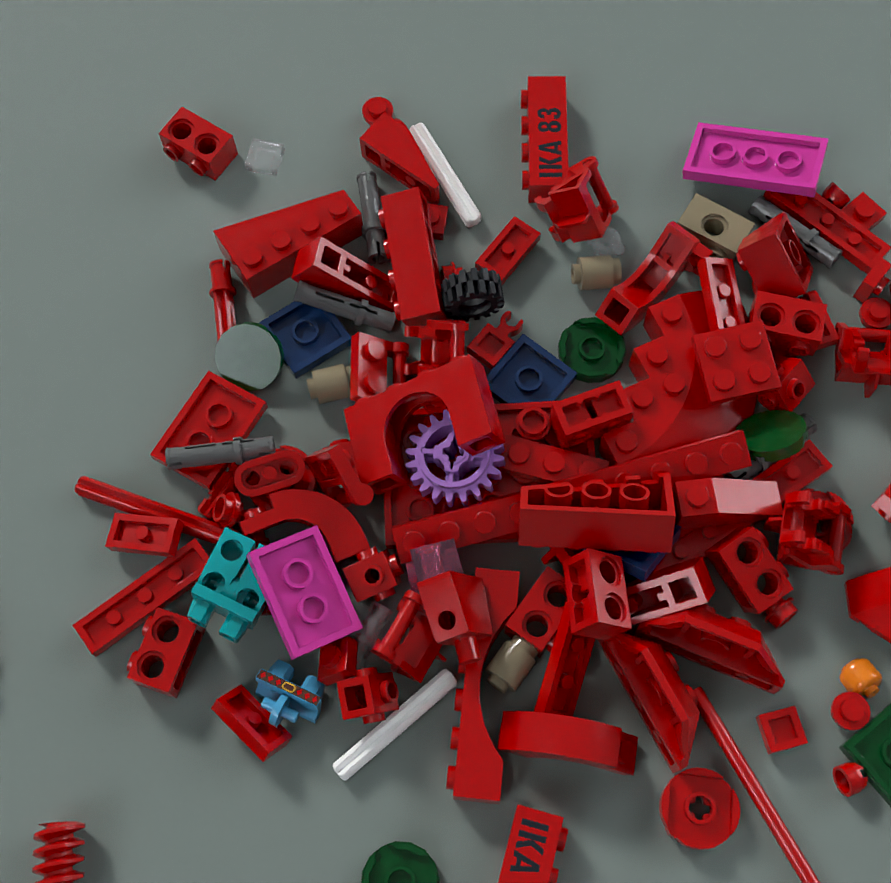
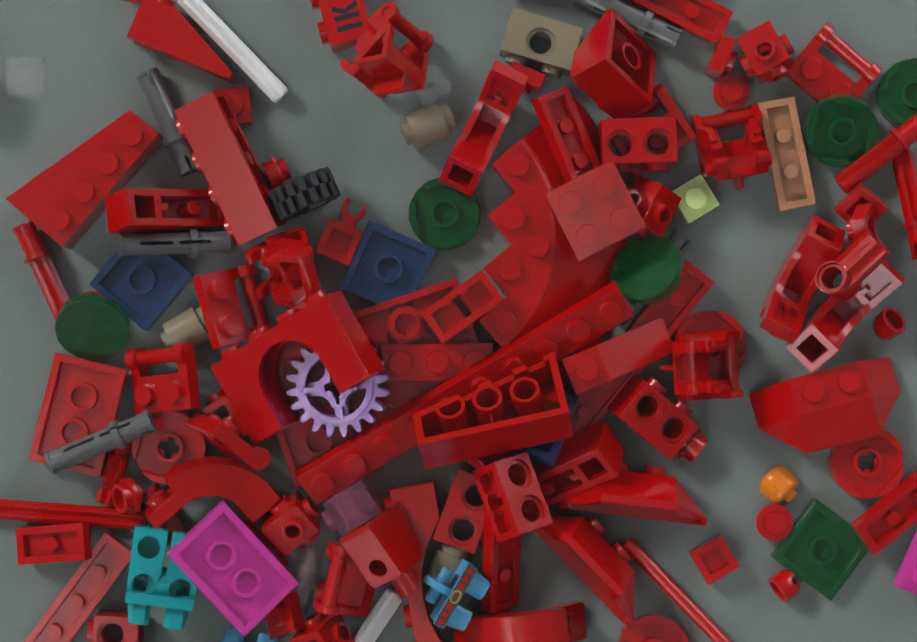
camera: 20 degrees left, 20 degrees up
(270, 473) = (159, 451): red plate -> none
(298, 426) = (164, 391): none -> red plate
(509, 249) = (327, 123): red plate -> none
(528, 669) = (447, 609): none -> dark azure hips
(827, 395) = (696, 199): none -> yellowish green plate

